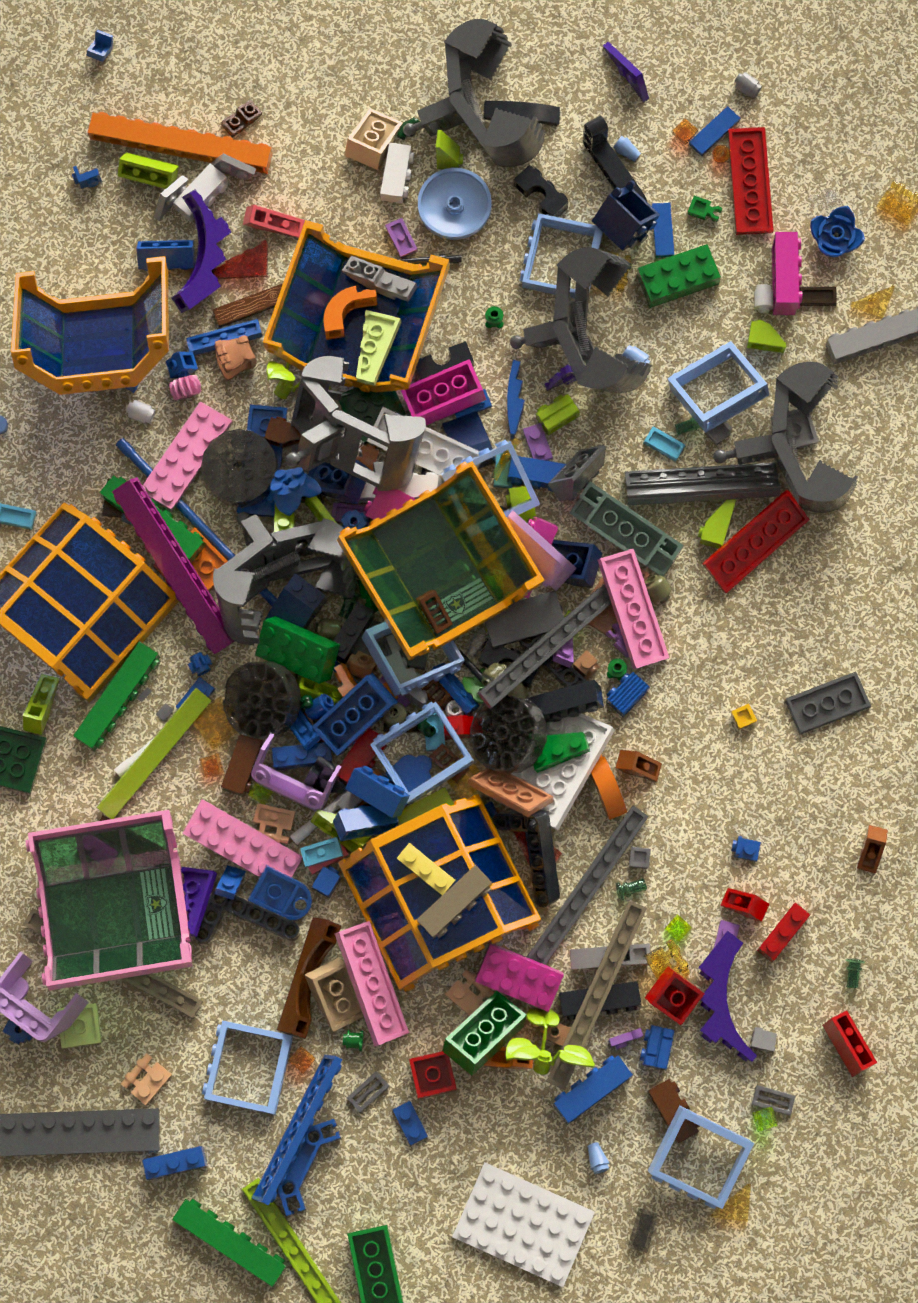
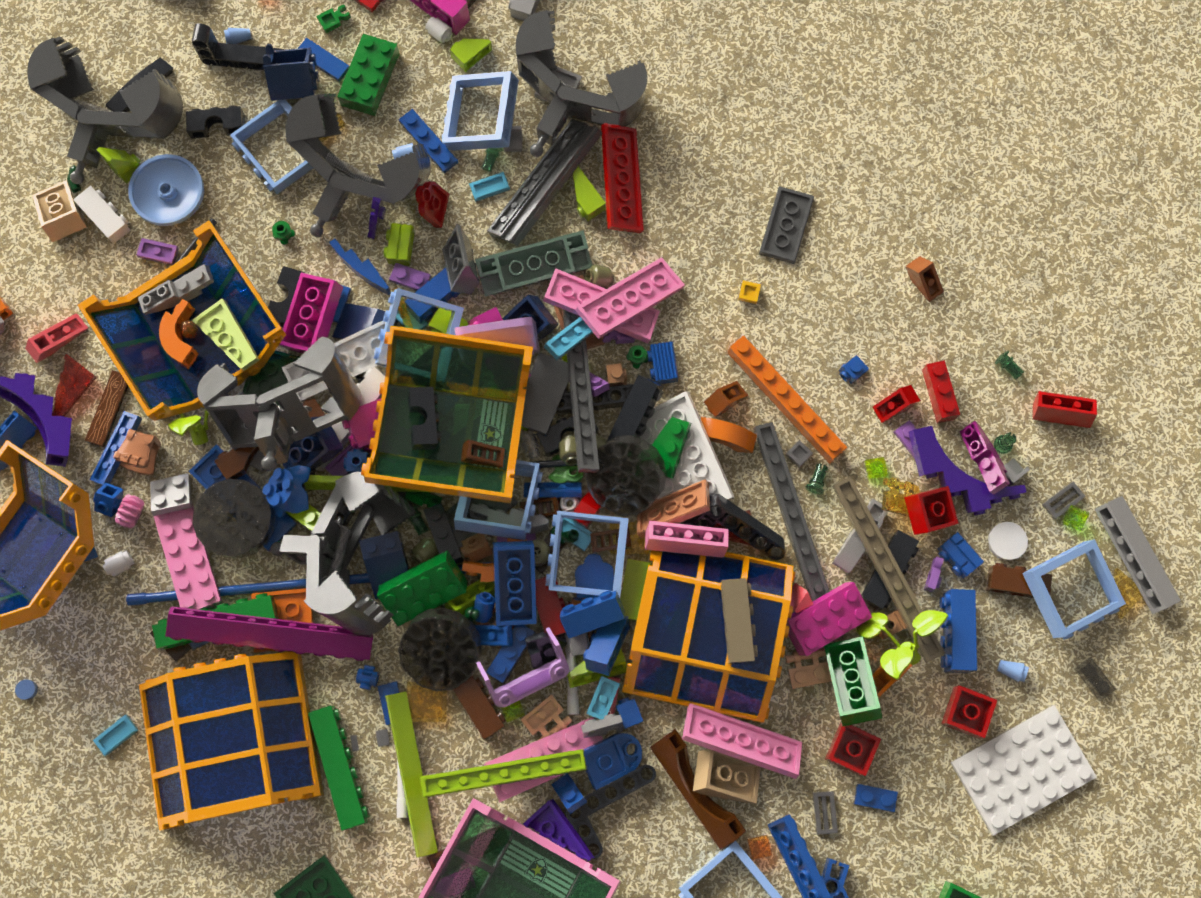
camera: 55 degrees left, 0 degrees up
(40, 704) = (292, 838): lime slope -> none
(205, 818) = (502, 773): none -> lime tile
(212, 765) = (459, 732): clear orange plate -> none
(222, 406) = (170, 494): none -> light grey plate
(298, 867) = (598, 728): none -> light grey wing
(353, 1040) = (775, 792): green brick -> none
(356, 313) = (188, 329): none -> clear orange plate
(426, 869) = (691, 623): light yellow plate -> none
(437, 533) = (423, 401): none -> black arch
(492, 817) = (686, 539): none -> bright pink brick
(517, 943) = (800, 598): none -> coral slope
(534, 1145) = (969, 712): none -> red brick
(584, 604) = (568, 338): none -> medium azure plate
(610, 411) = (432, 202): none -> red plate
(658, 625) = (629, 297): none -> bright pink plate
(663, 366) = (424, 135): none -> blue plate
(676, 814) = (786, 399): none -> orange brick
(702, 1078) = (1007, 541): none -> white tile
(756, 1008) = (985, 456): none -> magenta slope
(773, 1191) = (1137, 555): none -> light grey brick
(782, 1017) = (1004, 443): none -> clear green pin

